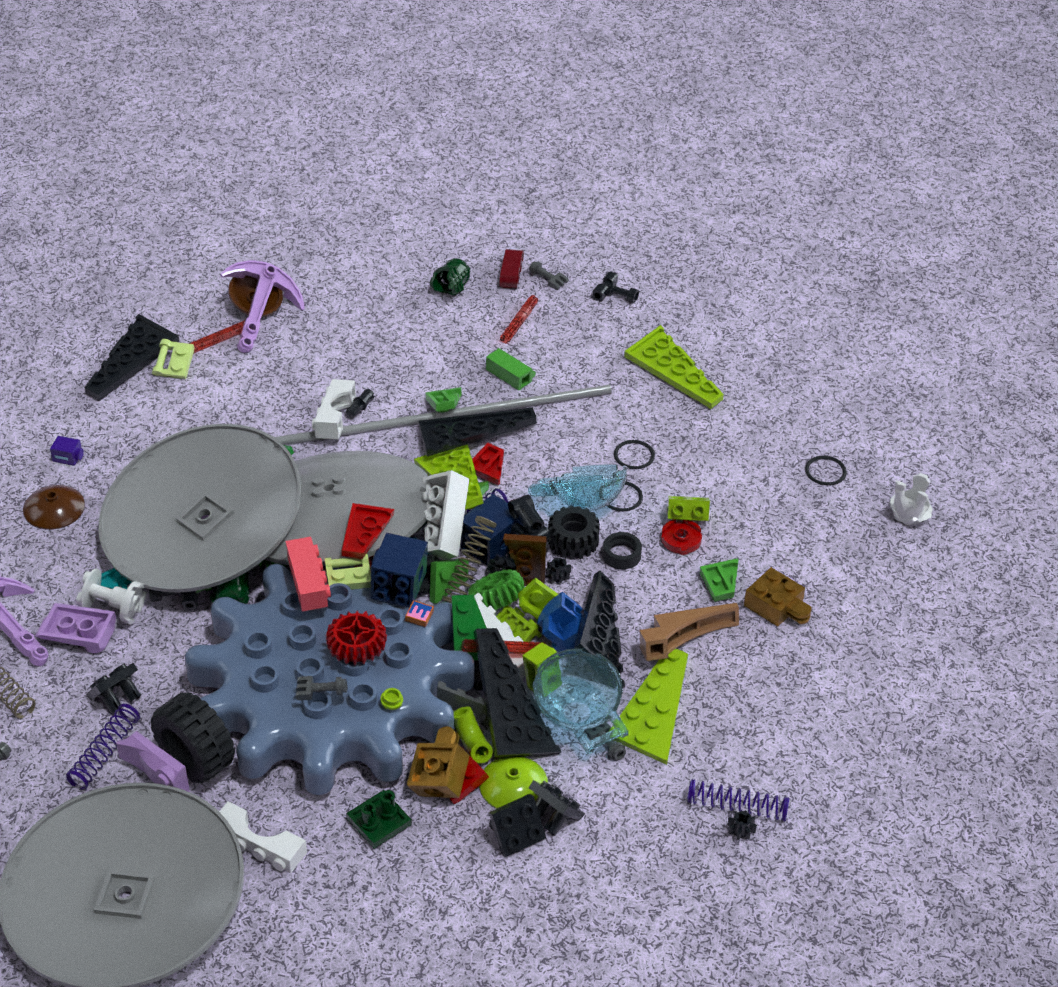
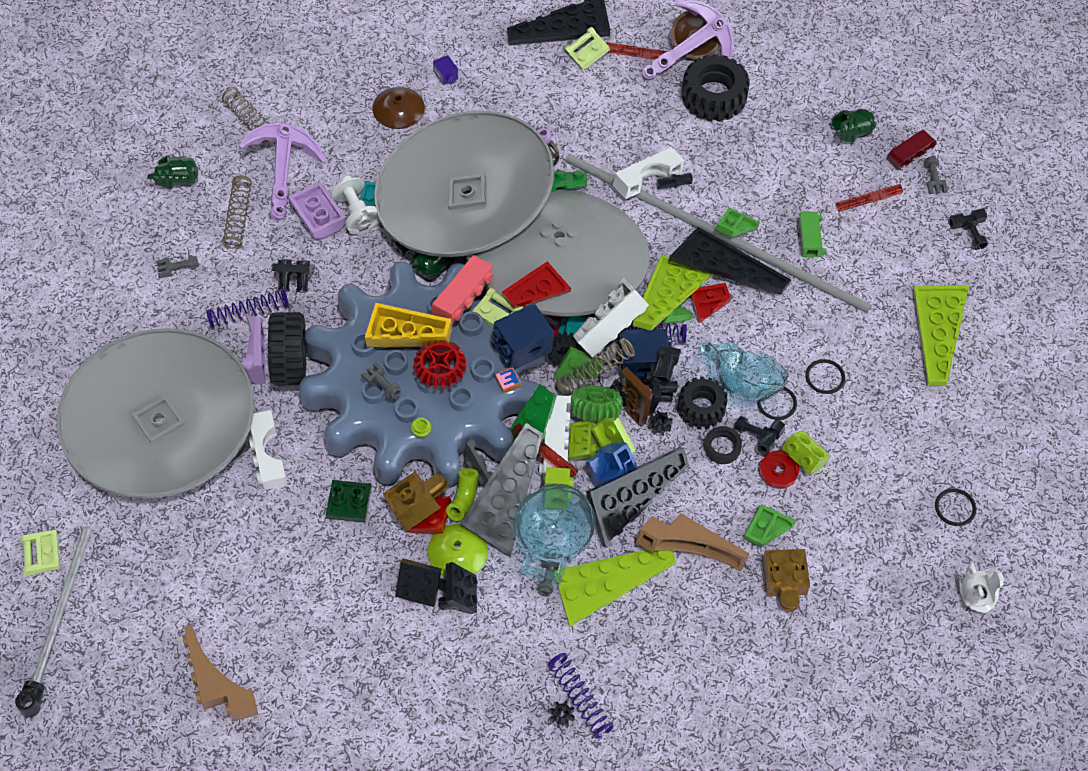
camera: 45 degrees right, 15 degrees up
(295, 631) = (405, 328): none -> yellow wedge
(315, 333) = (712, 104): none -> black tyre
(646, 518) = (767, 435): none -> black bar

